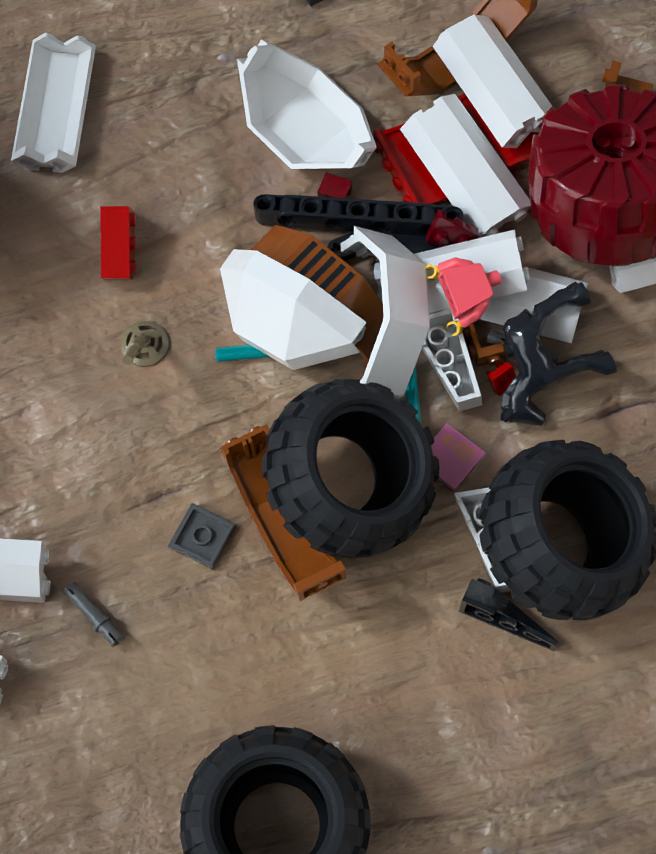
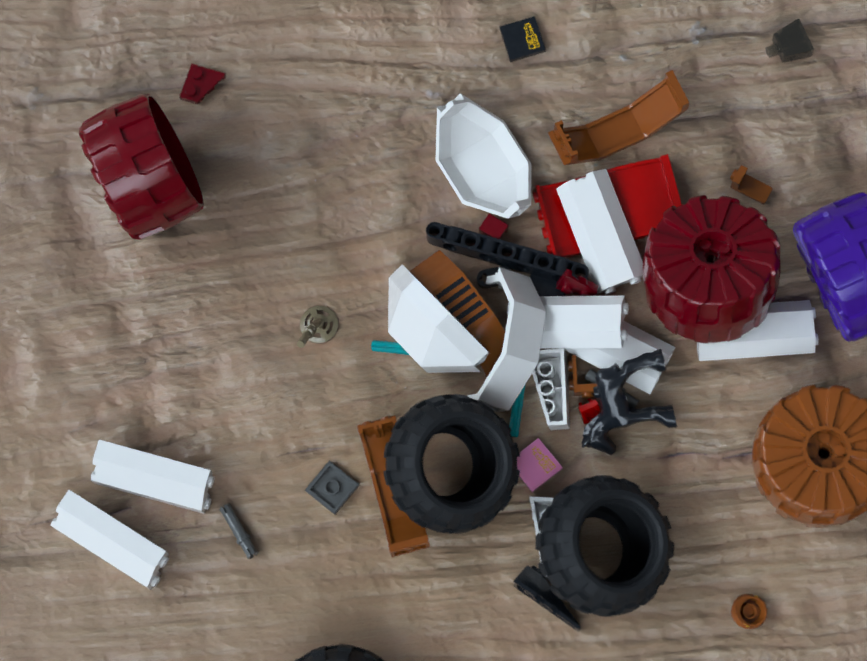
camera: 20 degrees right, 5 degrees up
(53, 103) = (286, 109): white panel -> none
(117, 242) = (313, 239): red wedge -> none
(465, 288) = (571, 339): coral torso -> none
(493, 79) = (640, 162): white panel -> none

